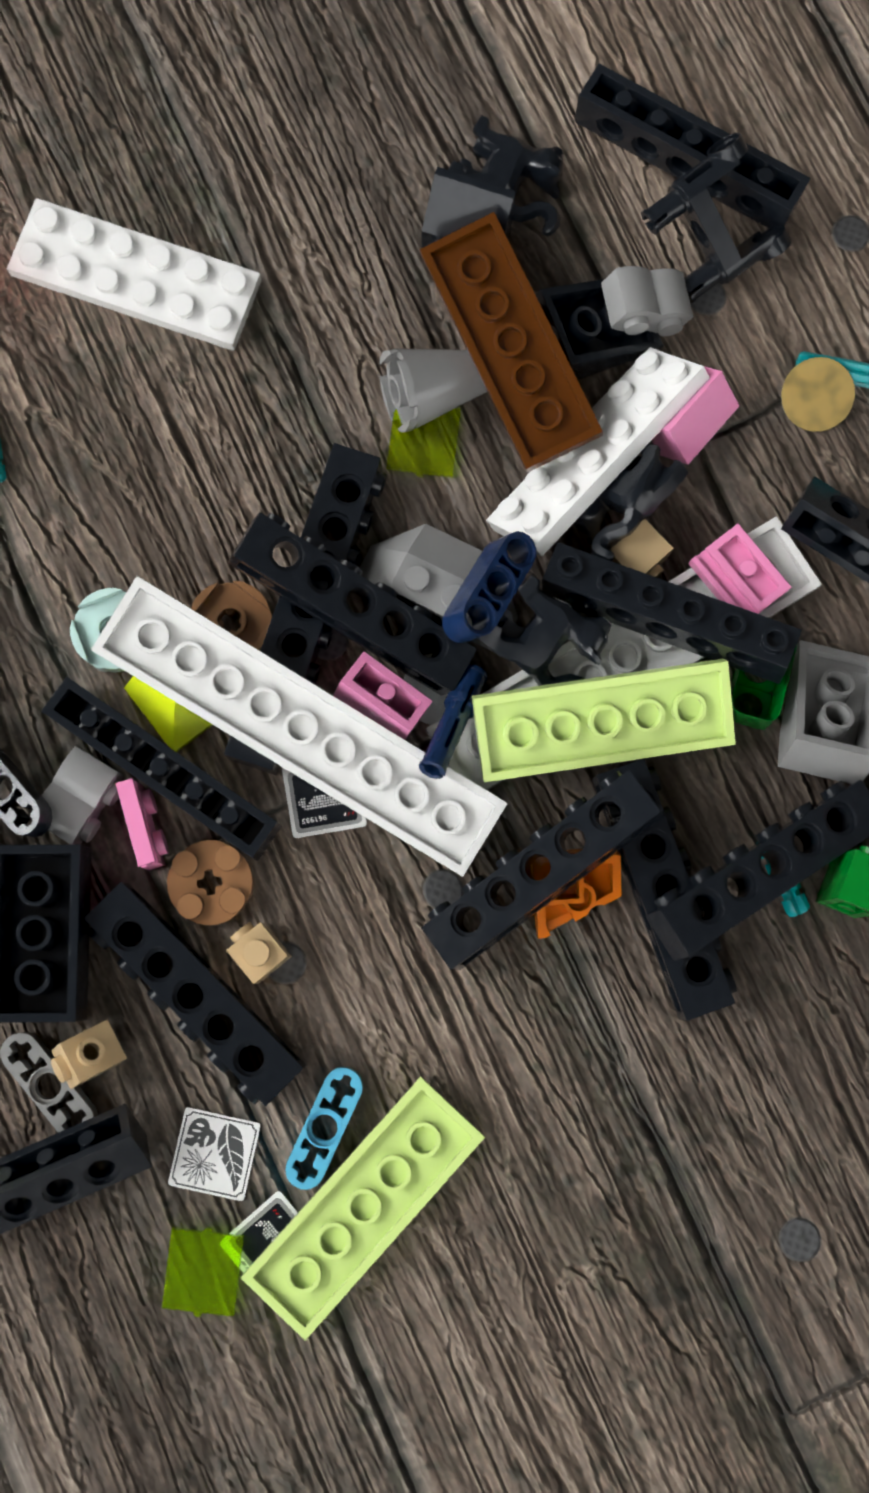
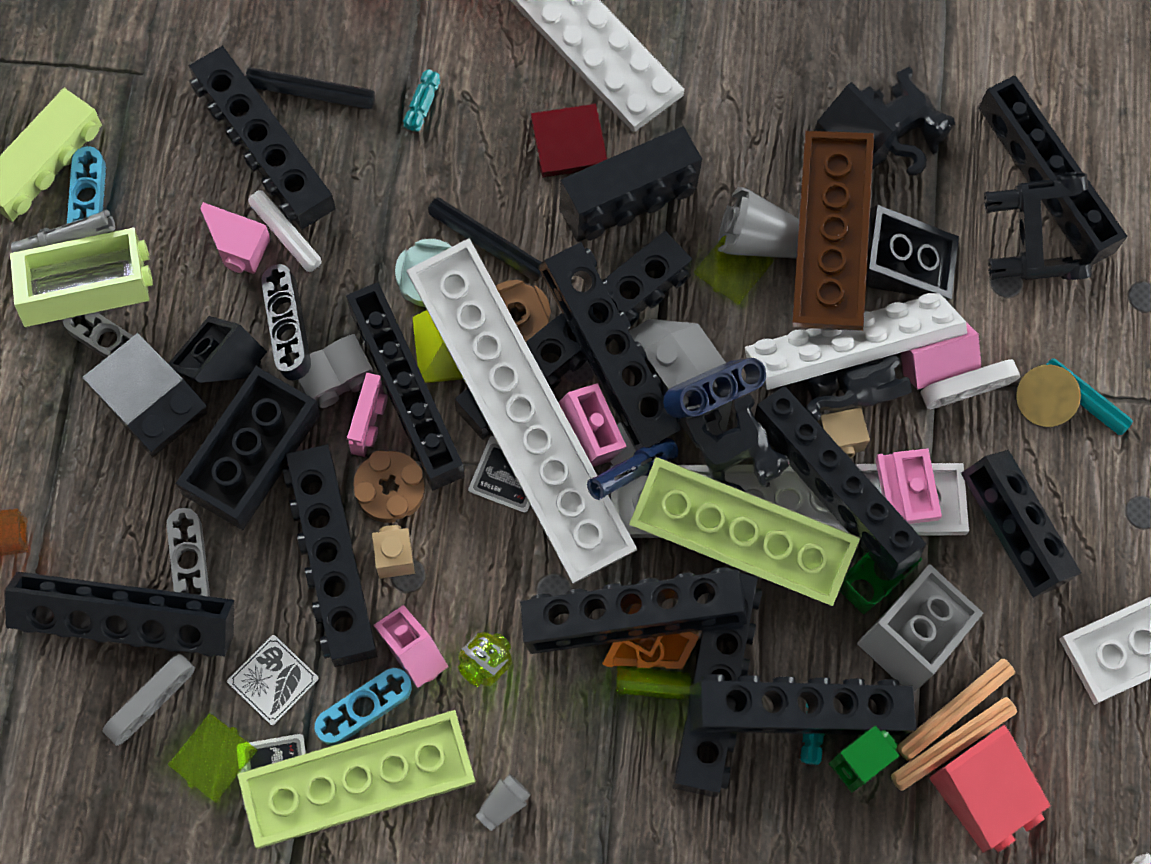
camera: 30 degrees right, 10 degrees down
(87, 1055) = (229, 551): tan brick -> none
(100, 1257) = (148, 699): none -> light grey beam
(149, 557) = (485, 238): none -> black axle
(172, 398) = (568, 139): none -> dark red tile
(268, 412) = (630, 184): none -> black brick
(335, 1038) = (411, 646): none -> bright pink slope
(419, 1006) = (485, 659): none -> clear neon green head
(524, 1139) = (503, 802): none -> light grey cone
(599, 925) = (652, 683): none -> clear neon green slope
(647, 300) = (955, 257): light grey brick -> none
(735, 427) = (970, 384): none -> white beam

